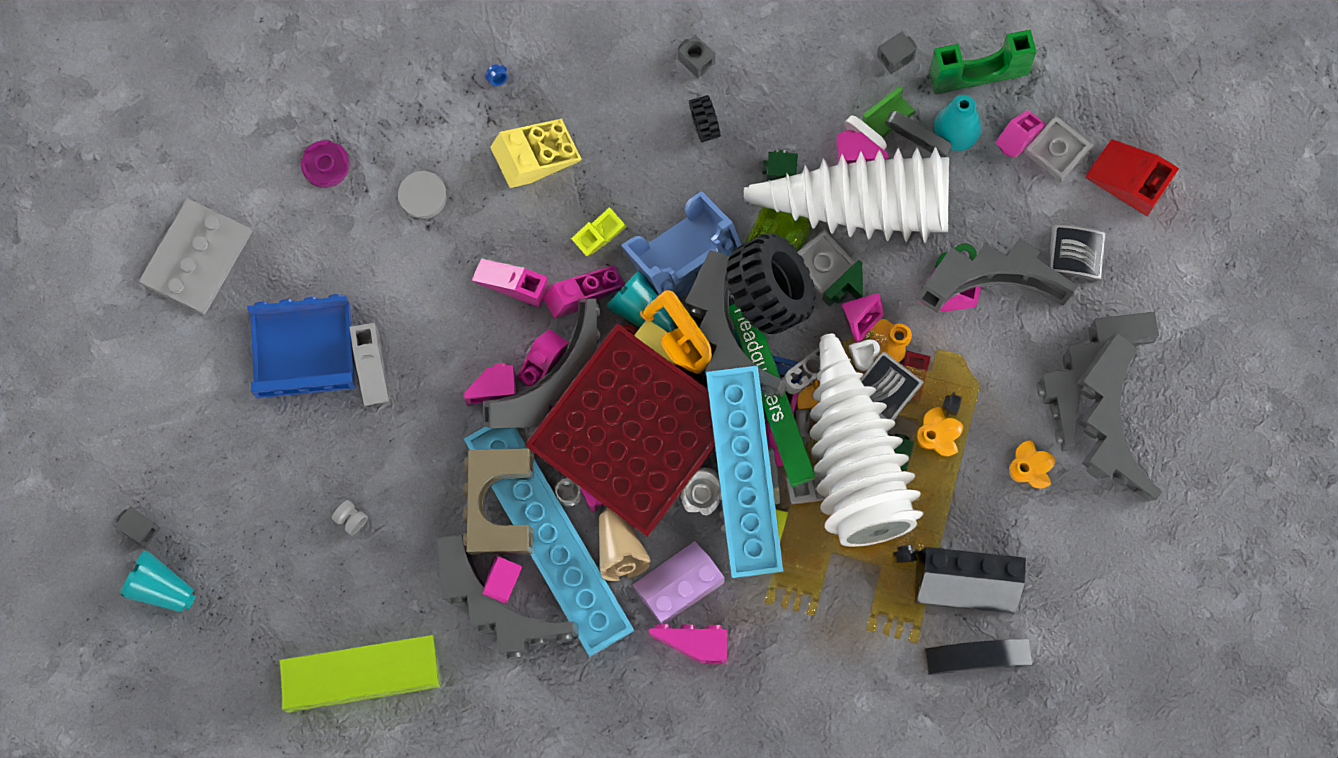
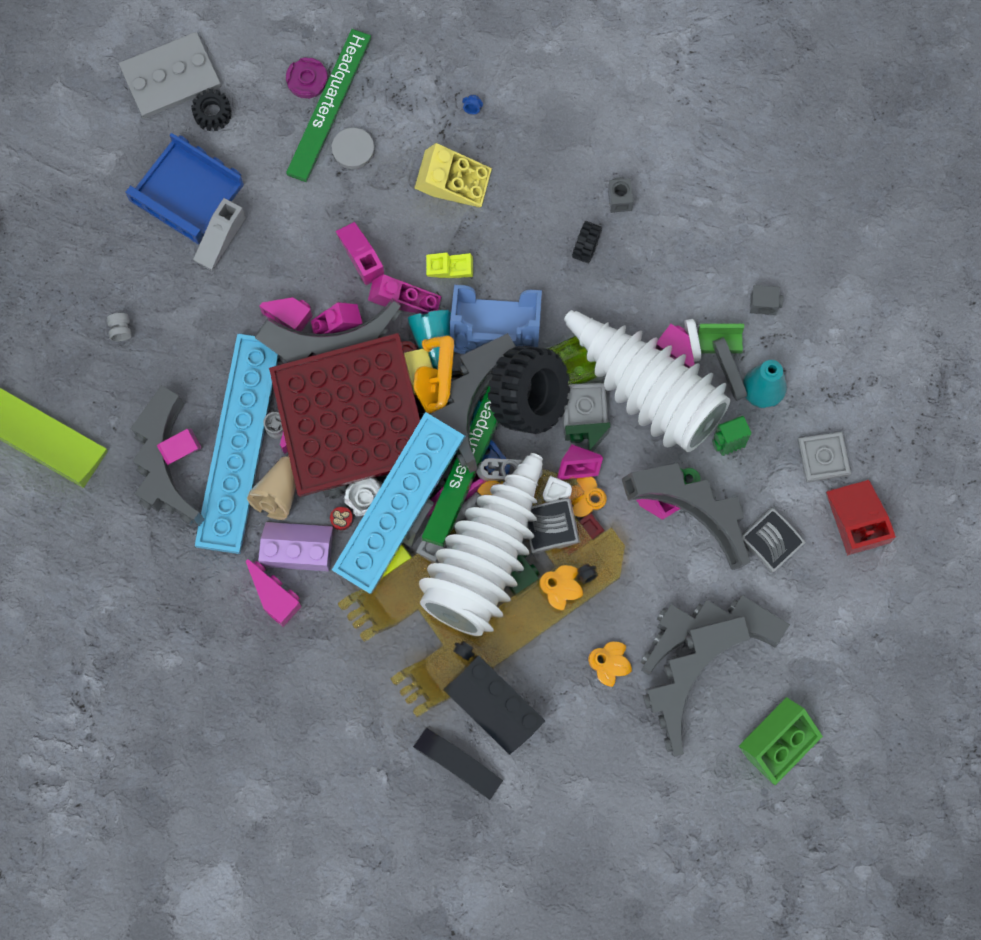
camera: 35 degrees right, 0 degrees up
(263, 272) = (208, 99): none -> black tyre
(367, 173) = (328, 105): none -> green tile
(484, 470) = (229, 364): dark tan arch -> none
(696, 528) = (341, 518): none -> tile
(780, 164) = (613, 313): dark green brick -> none
(971, 189) = (731, 435): none -> green brick
(1012, 61) = (836, 367): green arch -> none
(1019, 133) = (804, 424): dark pink slope -> none
(1227, 415) = (781, 740): none -> bright green slope

